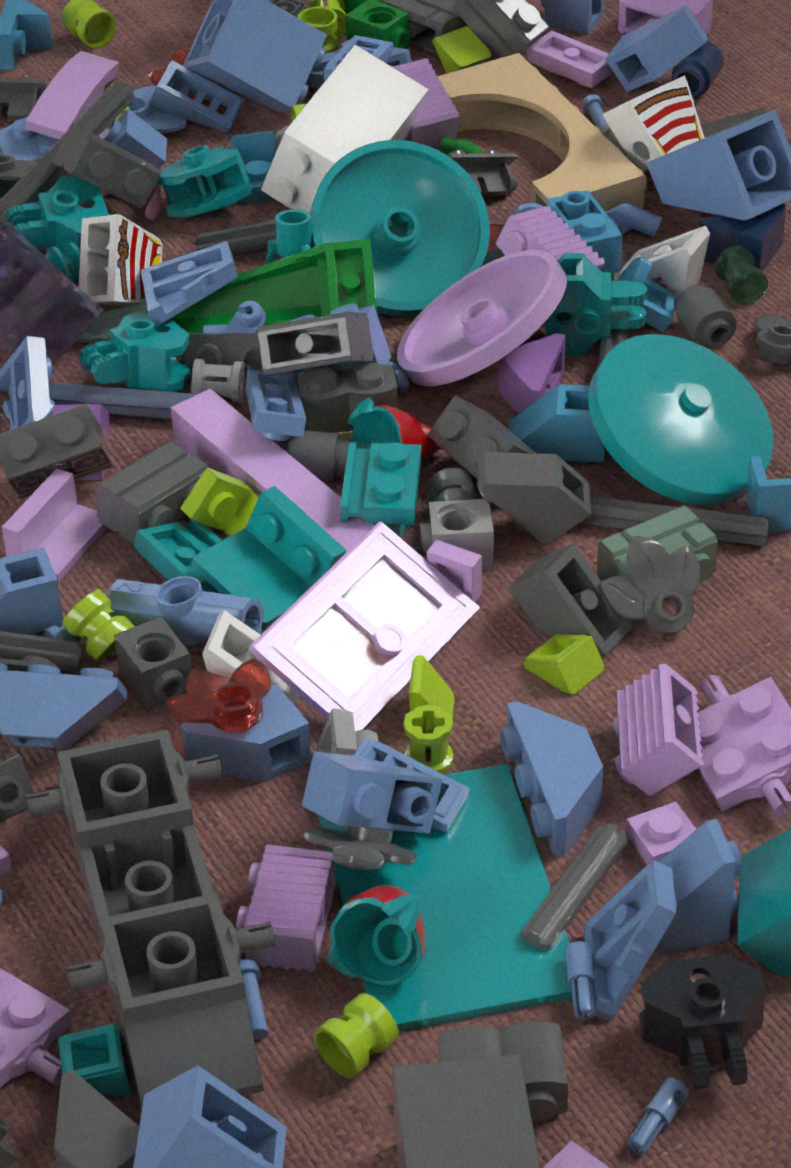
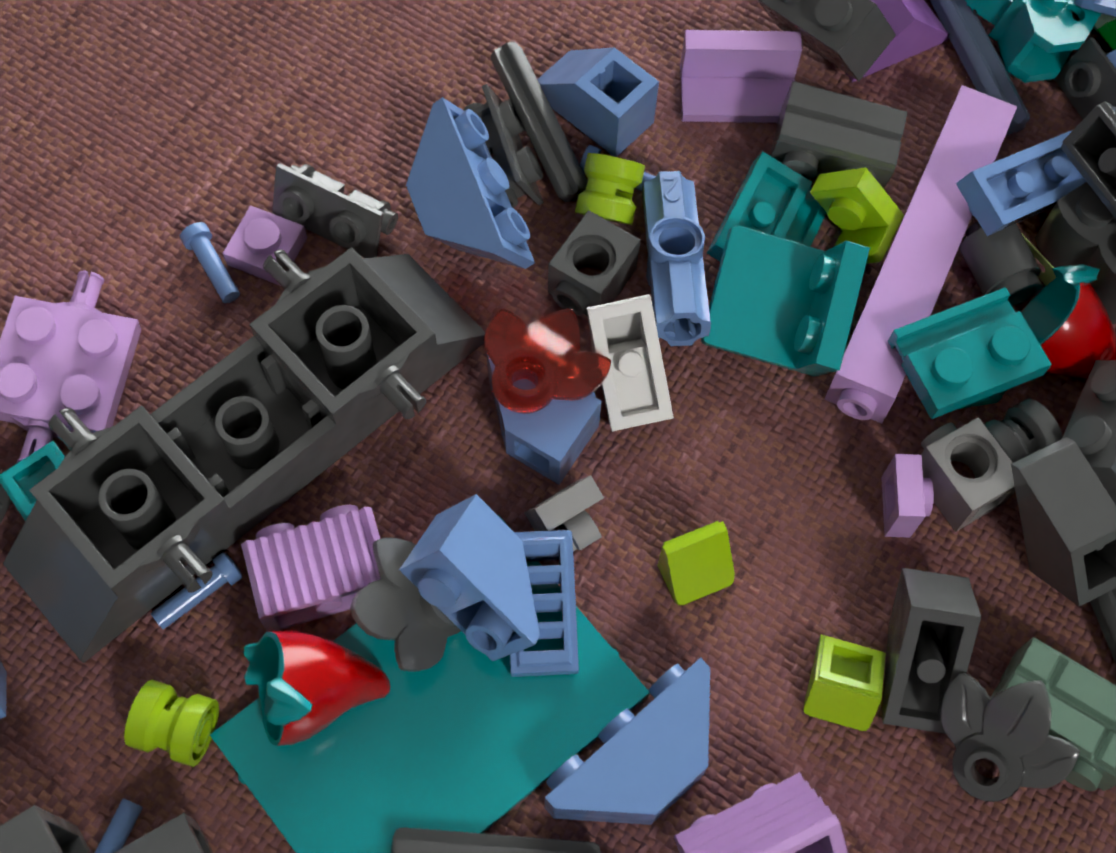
camera: 60 degrees right, 25 degrees up
(233, 374) = (1054, 103): light grey bush -> none
(362, 625) = (753, 446): door -> none
(436, 741) = (632, 577): lime bush -> none

